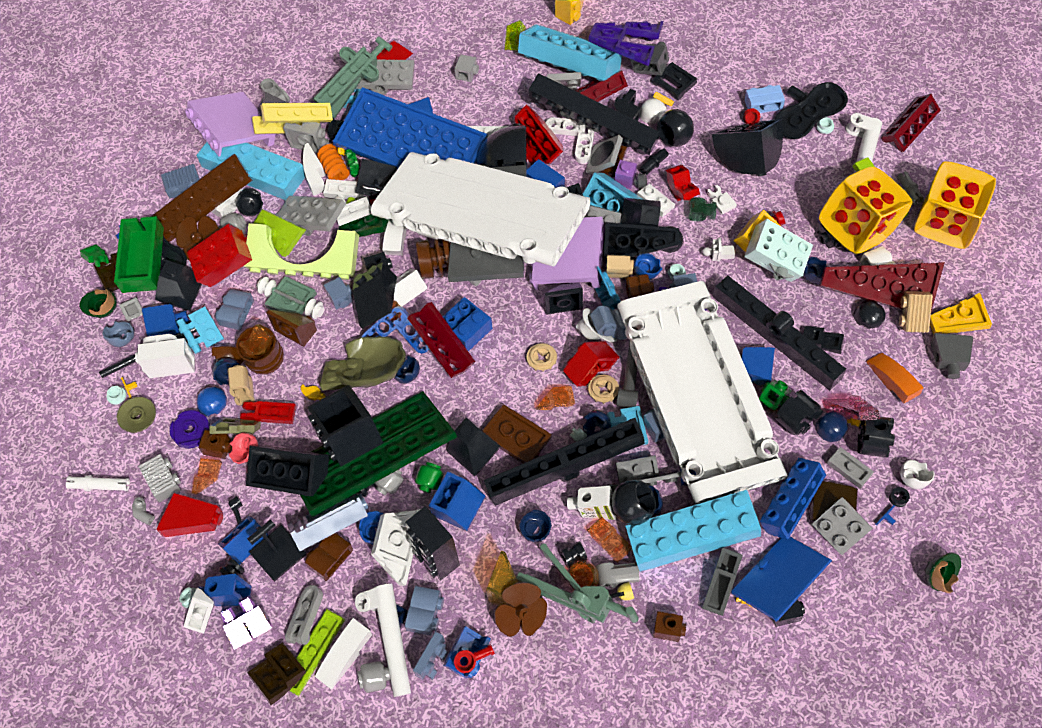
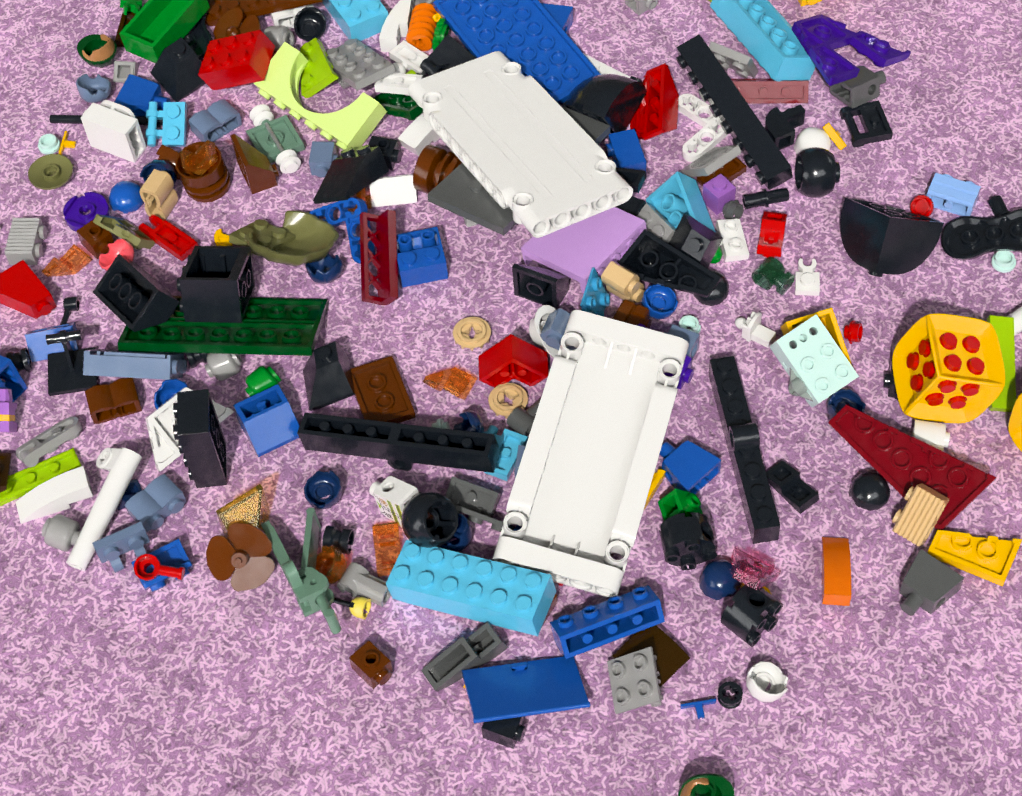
camera: 35 degrees right, 5 degrees down
(850, 467) = (701, 632): light grey plate -> none

